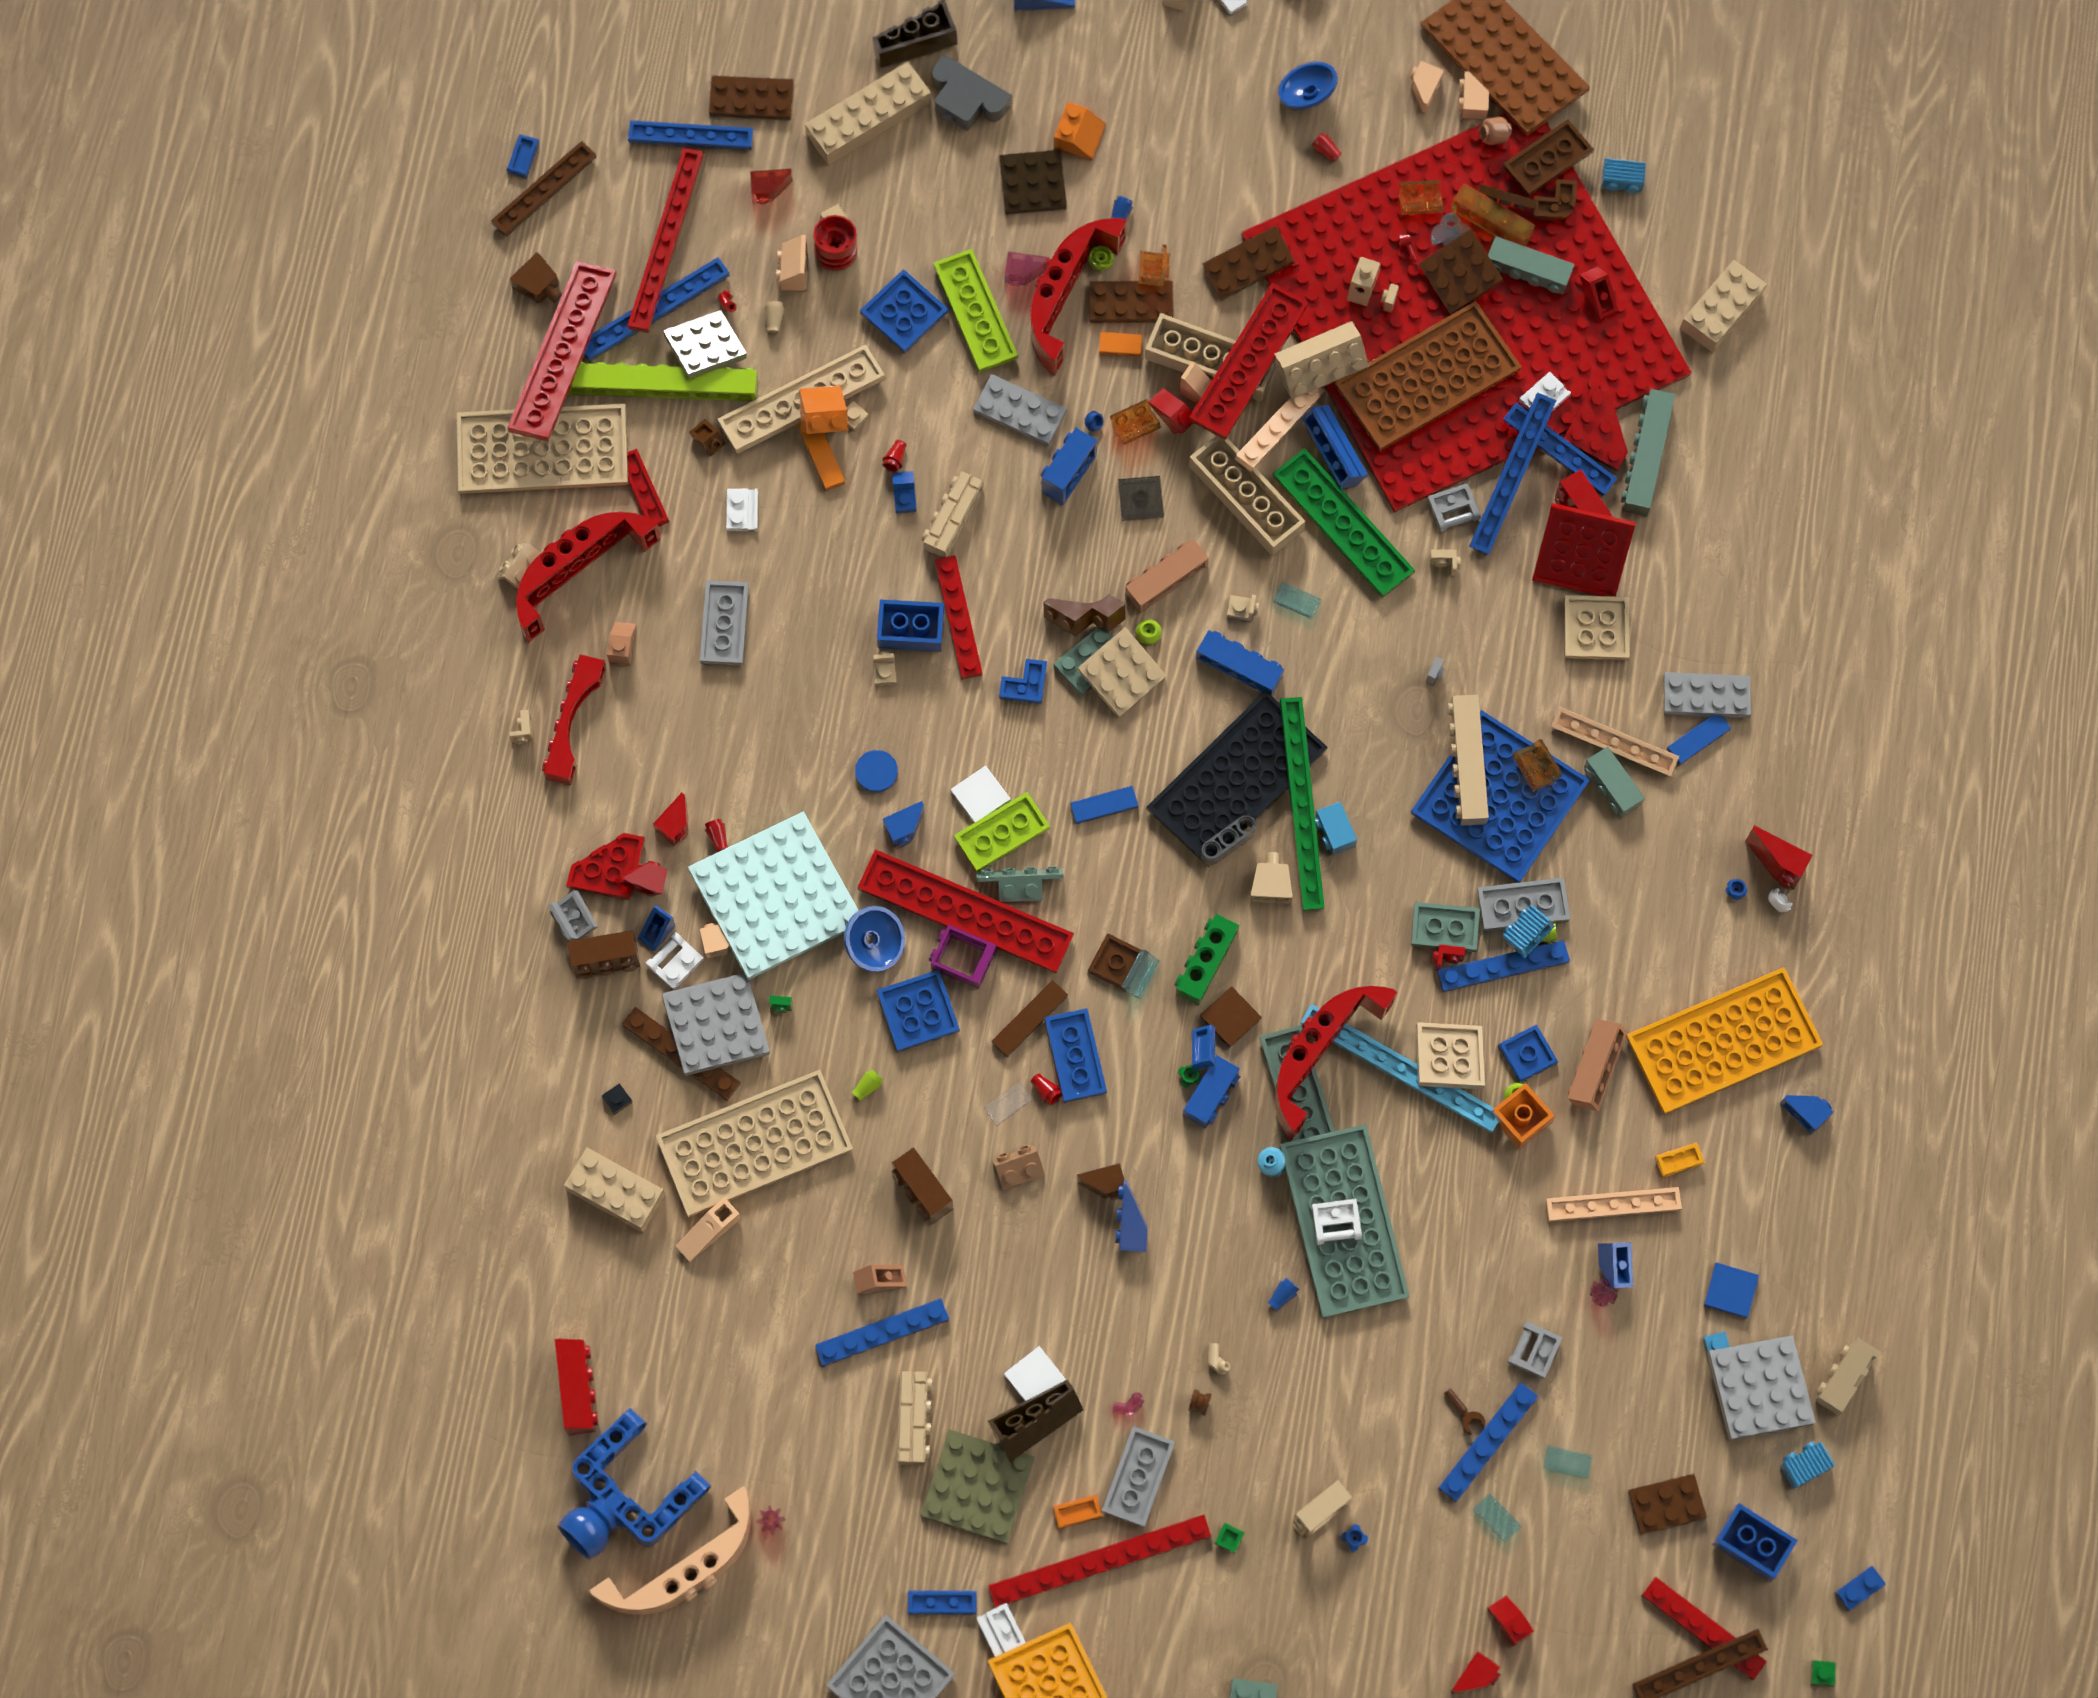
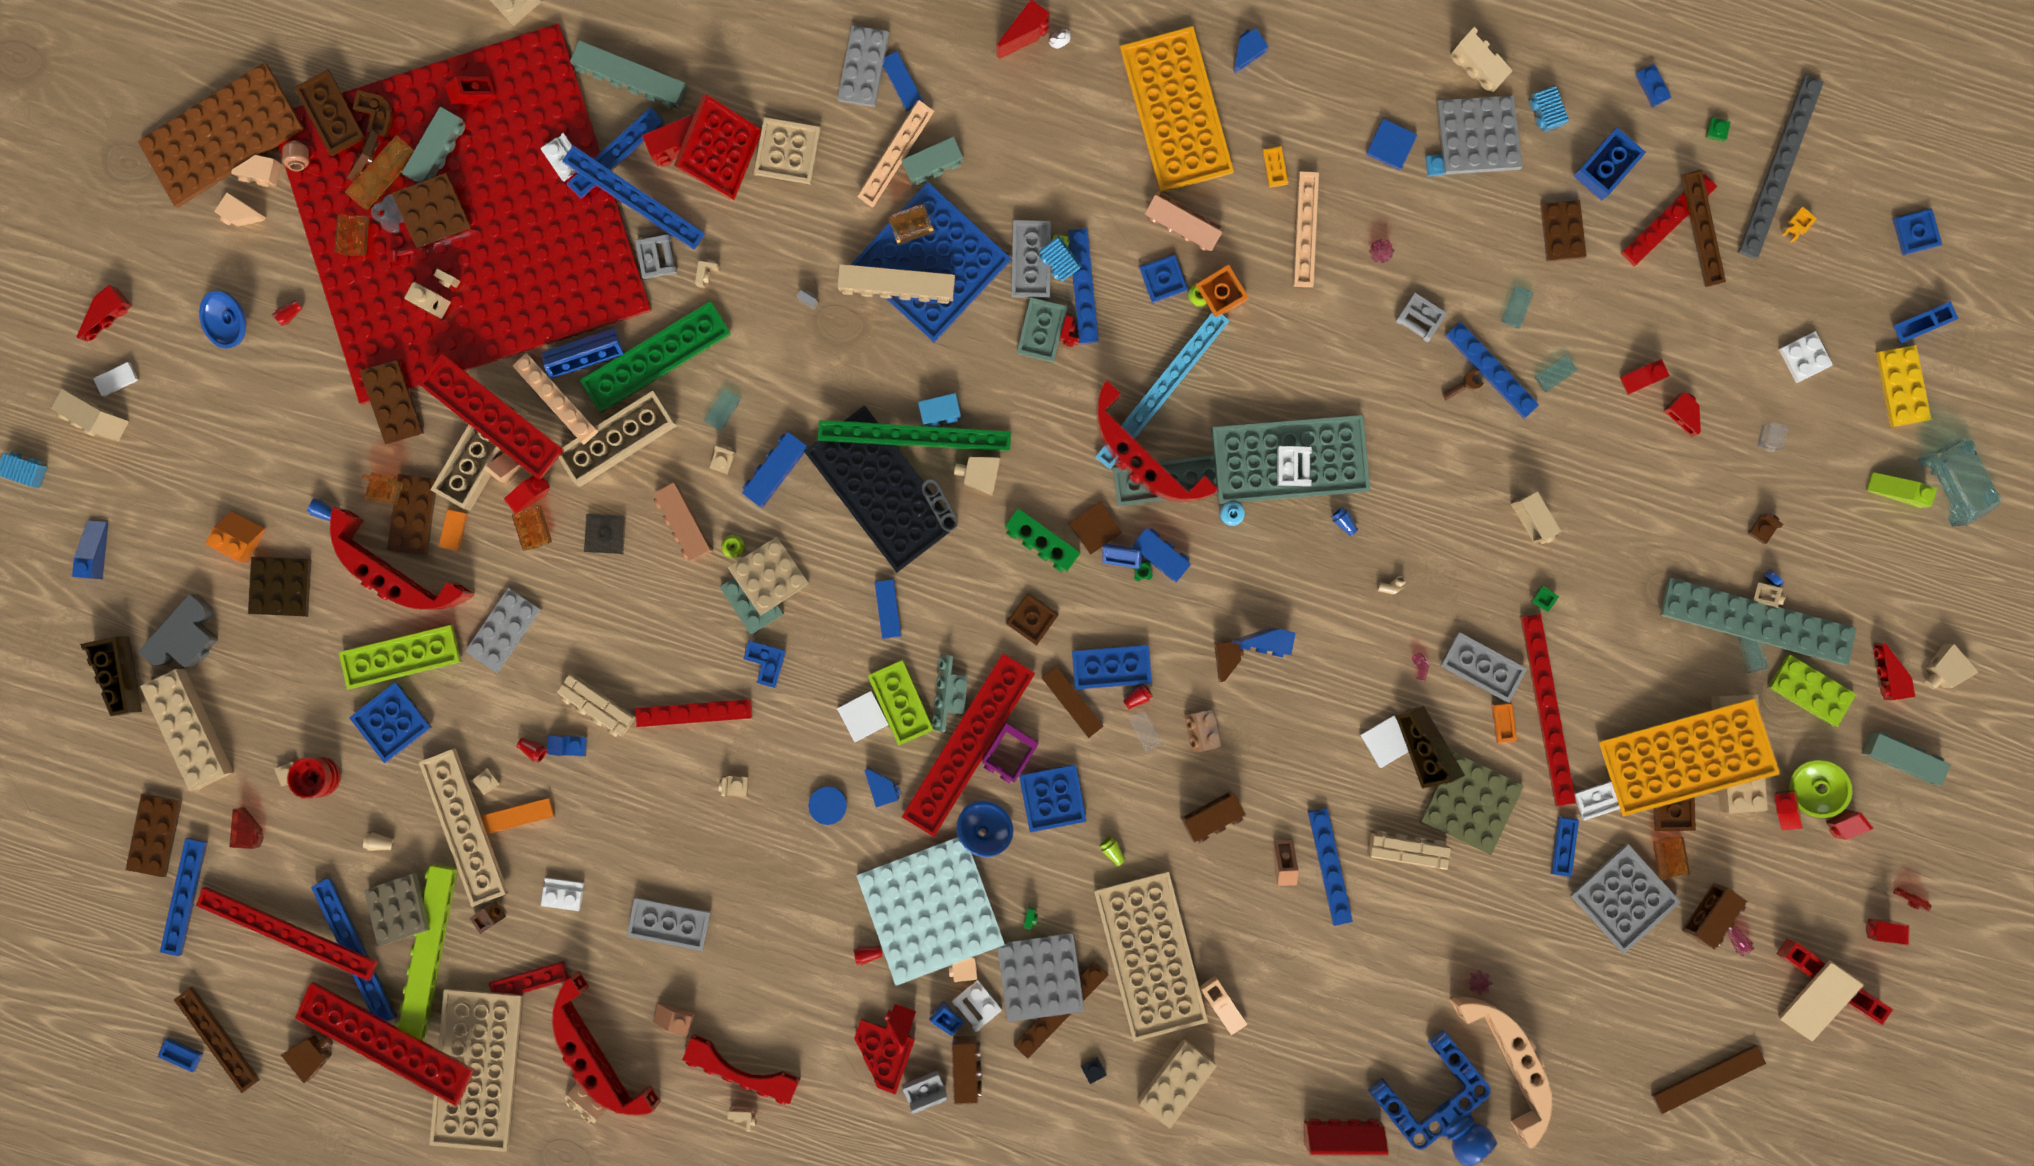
camera: 80 degrees left, 15 degrees up
(674, 821) = (849, 991): red slope -> none
(724, 299) = (353, 885): red arm -> none
(793, 264) = (329, 818): light nougat slope -> none
(822, 410) = (479, 811): orange slope -> none
(910, 625) = (697, 758): blue brick -> none
(1023, 268) = (365, 608): clear pink slope -> none
(1068, 465) = (566, 594): blue brick -> none
(1077, 616) = (711, 609): reddish brown arch -> none
(1094, 421) = (524, 565): blue plate -> none
(1101, 252) = (359, 535): lime plate -> none
(1141, 974) = (1047, 600): clear light blue tile -> none
(1199, 1402) = (1428, 606): reddish brown wheel -> none
(1321, 360) = (499, 350): tan brick -> none
(1348, 1537) = (1563, 496): blue plate -> none
(1428, 376) = (527, 258): dark orange plate -> none
(1450, 1055) = (1159, 345): tan plate -> none
(1598, 430) = (601, 116): red plate -> none
(1616, 1263) = (1359, 235): blue slope -> none
(1623, 175) = (357, 48): dark azure brick -> none
(1736, 883) = (1043, 69): blue plate -> none

